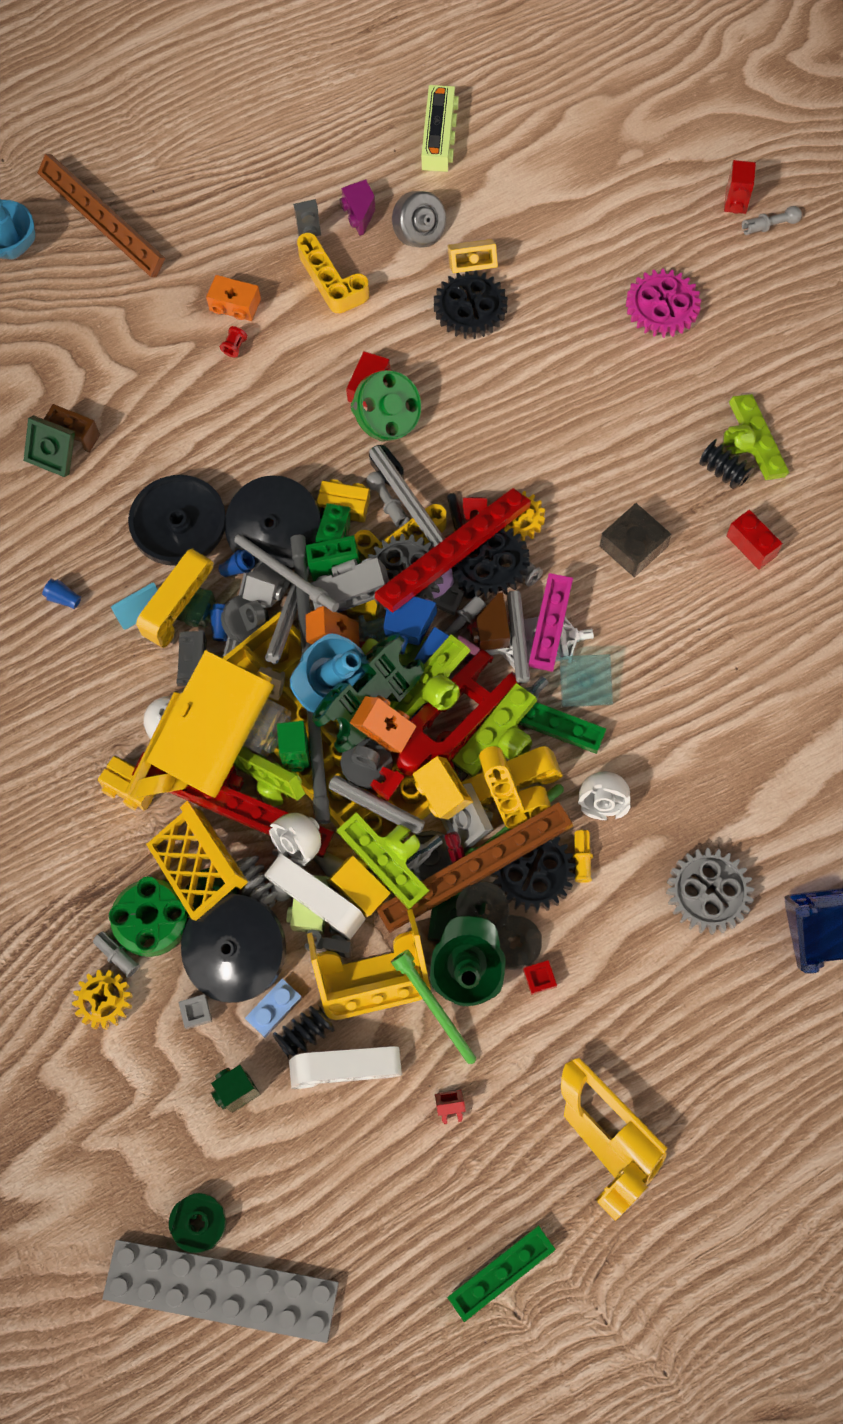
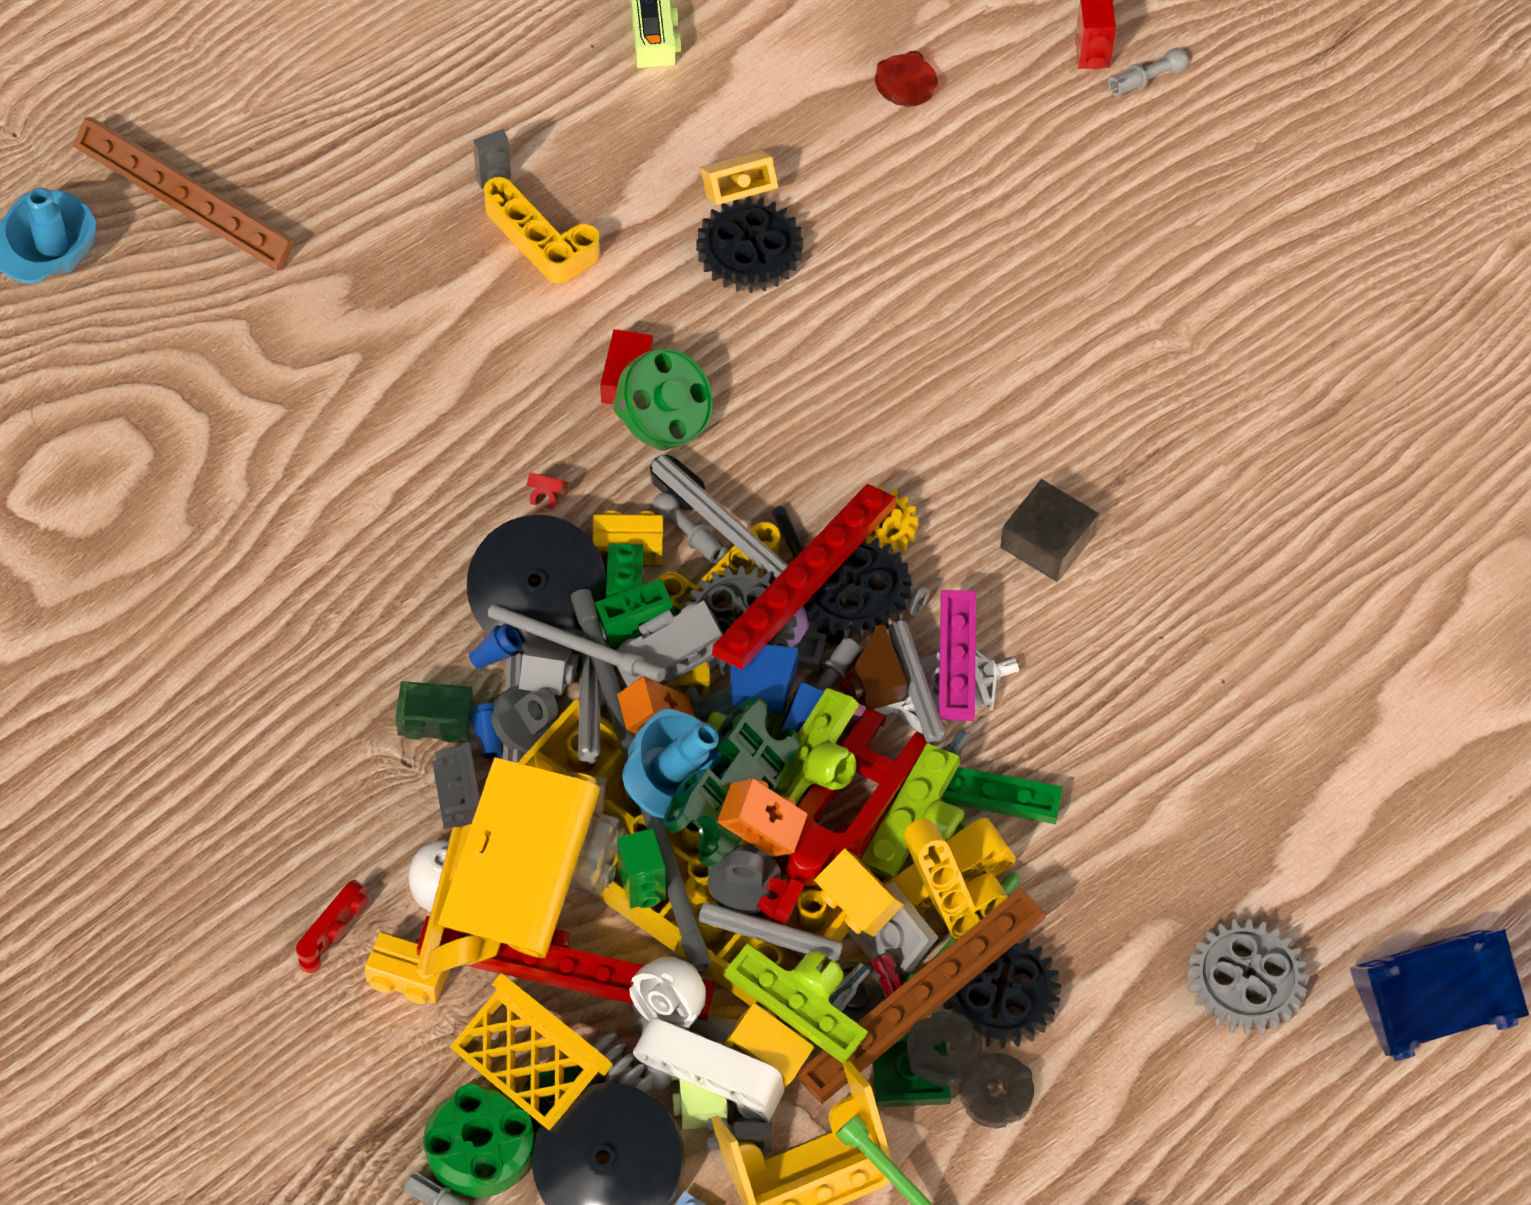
camera: 15 degrees left, 10 degrees down
(49, 446) = (186, 525): dark green plate -> none
(59, 593) = (247, 727): blue cone -> none
(84, 427) = (211, 491): reddish brown panel -> none
(84, 743) = (331, 925): none -> red plate
(130, 607) = (364, 727): medium azure slope -> none
(172, 597) = (404, 733): yellow beam -> none
(176, 517) = (396, 599): black dish -> none
(233, 298) = (406, 282): orange brick -> none
(233, 341) = (419, 343): red bush -> none
(271, 778) = (614, 922): lime plate -> none
(296, 454) = (547, 486): none -> red tile
(359, 203) = (559, 127): magenta slope -> none
(419, 219) = (651, 136): flat silver wheel -> none
(468, 961) = (941, 1117): dark green piece -> none
(473, 503) = (814, 514): red tile -> none
(539, 977) = (1040, 1128): red plate -> none
(582, 856) = (1065, 961): yellow axle -> none
(586, 680) = (1020, 728): clear light blue plate -> none
(602, 202) = (906, 79): none -> clear red dish
(604, 795) = (1079, 875): white cylinder -> none
(663, 303) = (1040, 206): dark pink gear -> none
(725, 465) = (1153, 412): black piece -> none
(754, 437) = (1184, 369): lime plate -> none
(754, 539) = (1212, 505): red brick -> none

